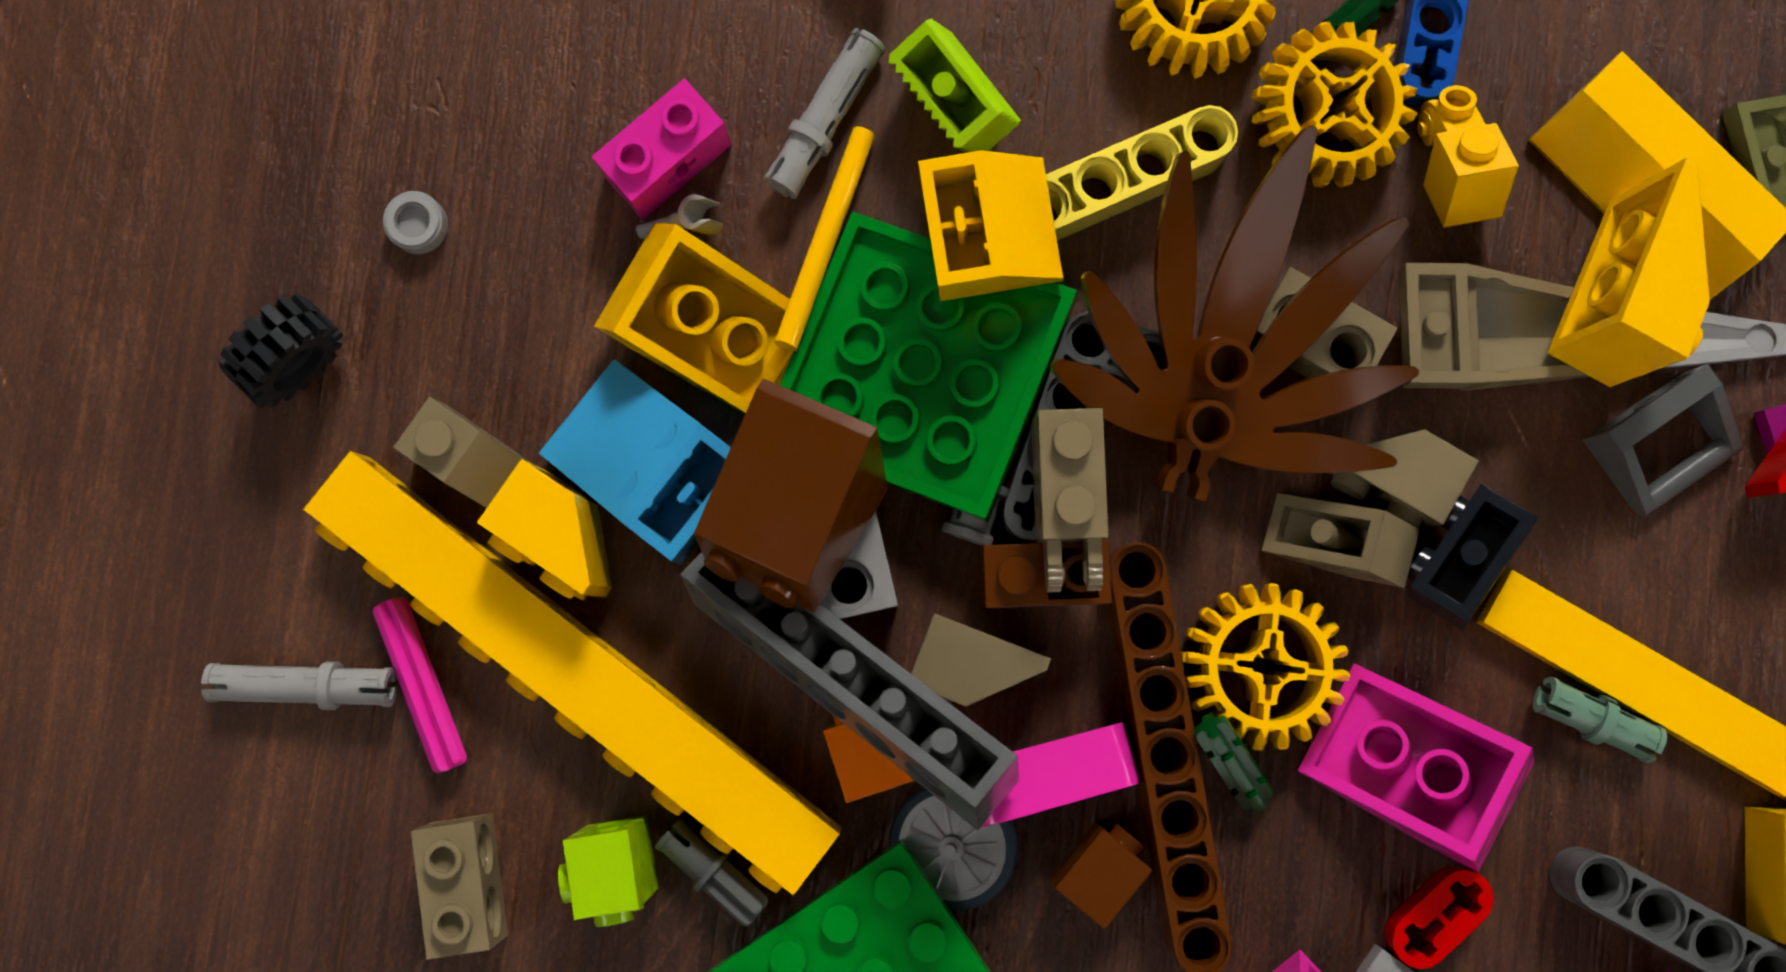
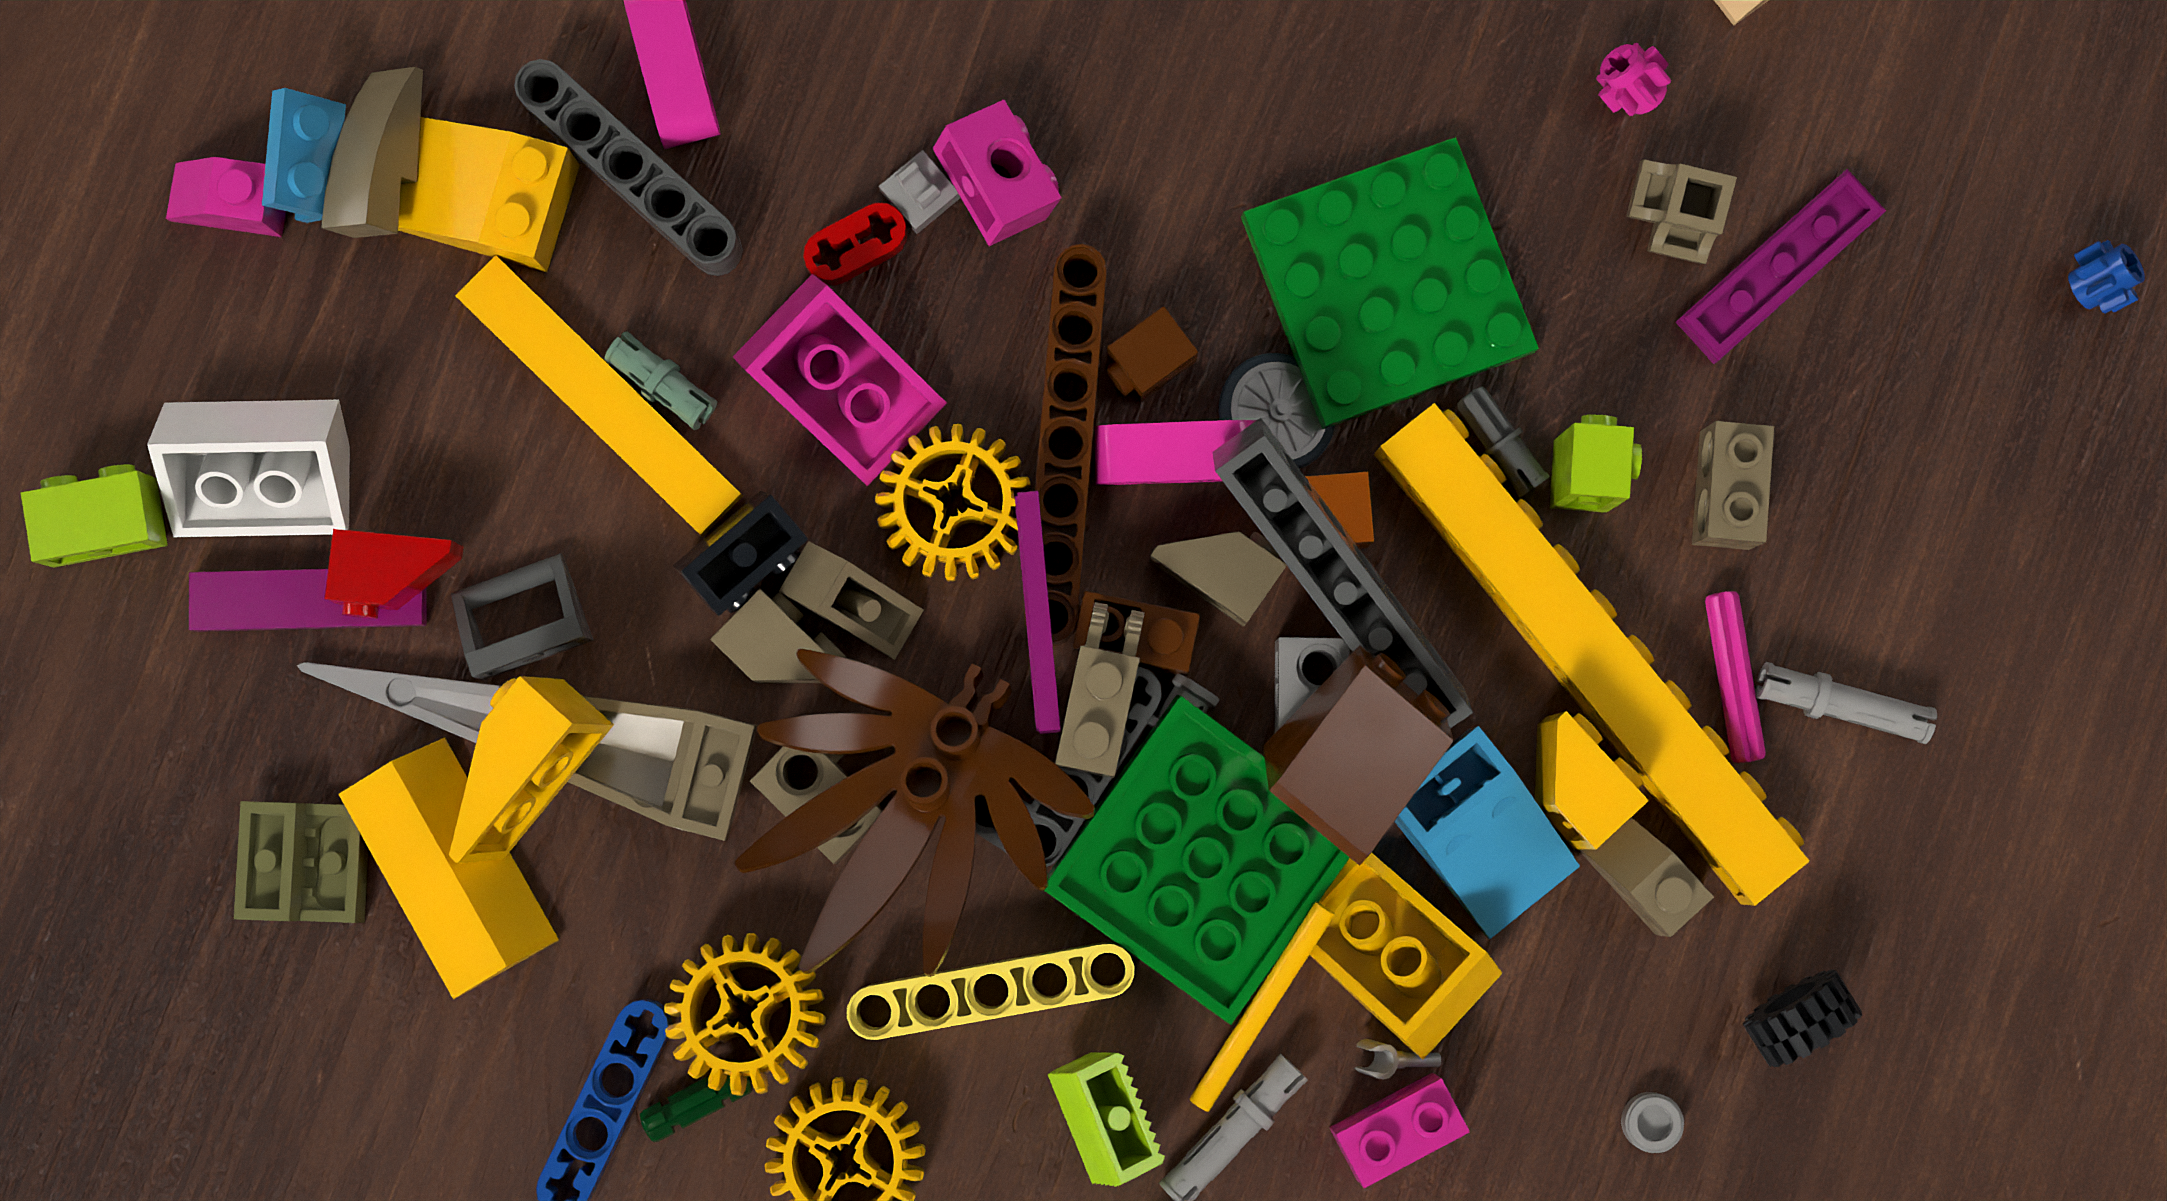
camera: 170 degrees left, 0 degrees up
(989, 223) = (1111, 967): yellow slope -> none
(1157, 568) = (1037, 612): none -> magenta tile
(1233, 762) = (1007, 422): dark green axle -> none
(1469, 160) = (635, 929): yellow brick -> none

